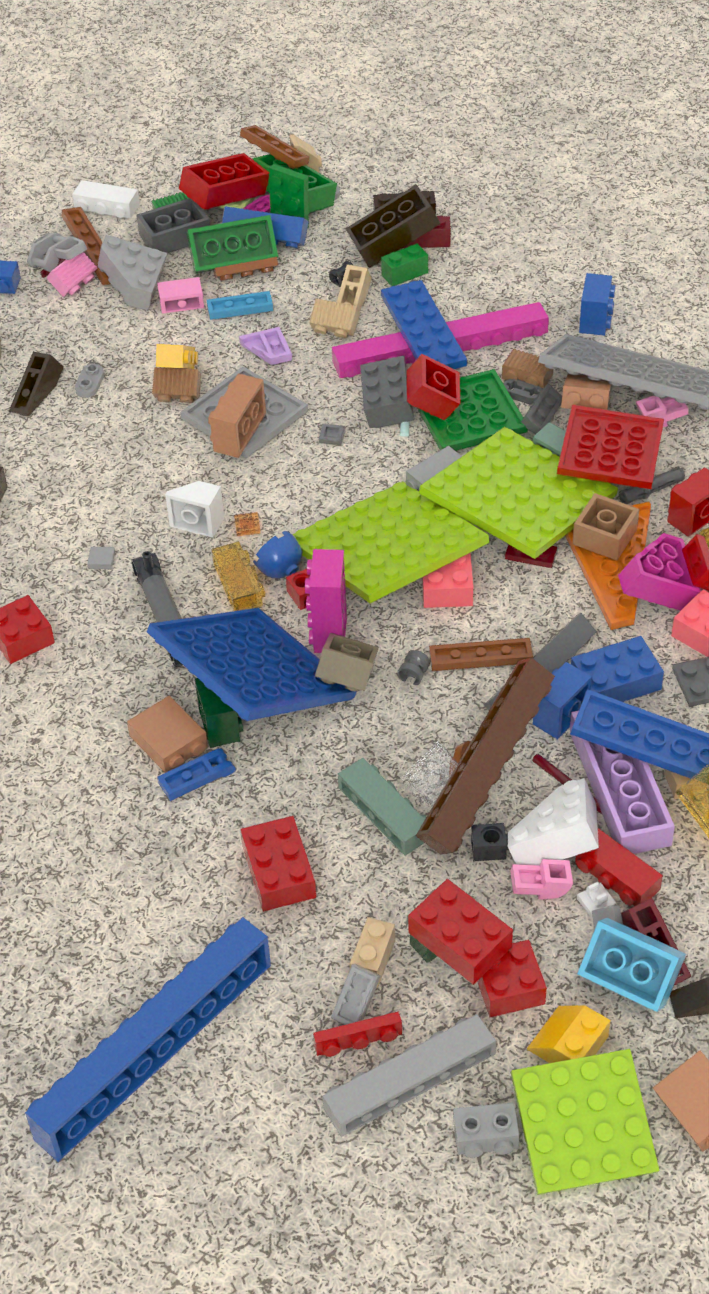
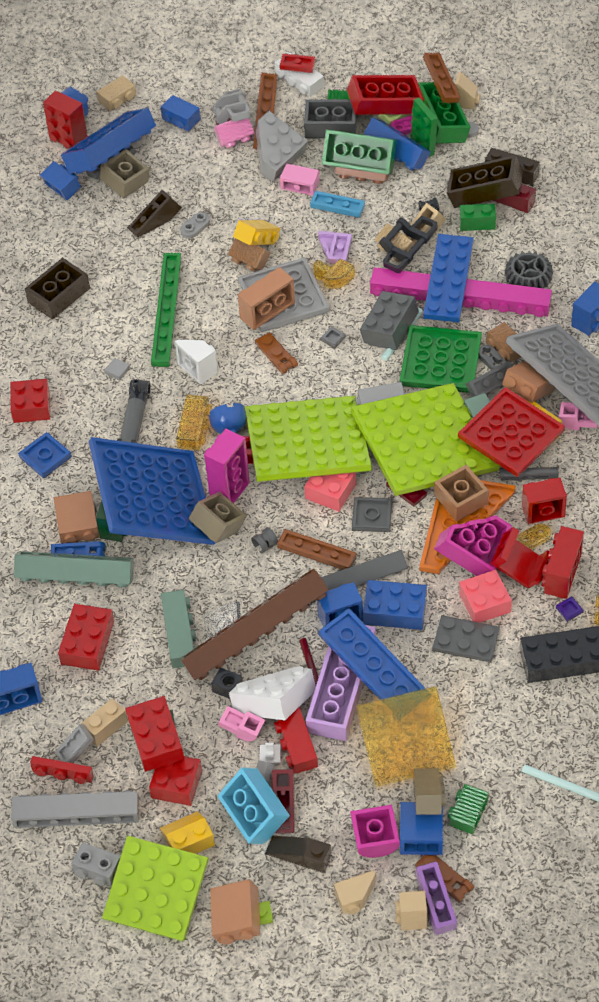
camera: 30 degrees right, 5 degrees up
(77, 682) = (45, 454): none -> blue plate
(101, 184) = (297, 63): none -> red plate
(118, 476) = (166, 310): none -> green plate
(205, 791) = (73, 568): none -> sand green brick
(247, 524) = (228, 384): clear orange tile -> none
(279, 472) = (276, 353): none -> dark orange plate
(290, 373) = (336, 276): none -> clear yellow brick
(363, 299) = (411, 231): none -> black bar
(433, 387) = (416, 331): red brick -> none
(496, 294) = (527, 266): none -> dark grey gear
(513, 593) = (372, 514): none -> dark grey tile

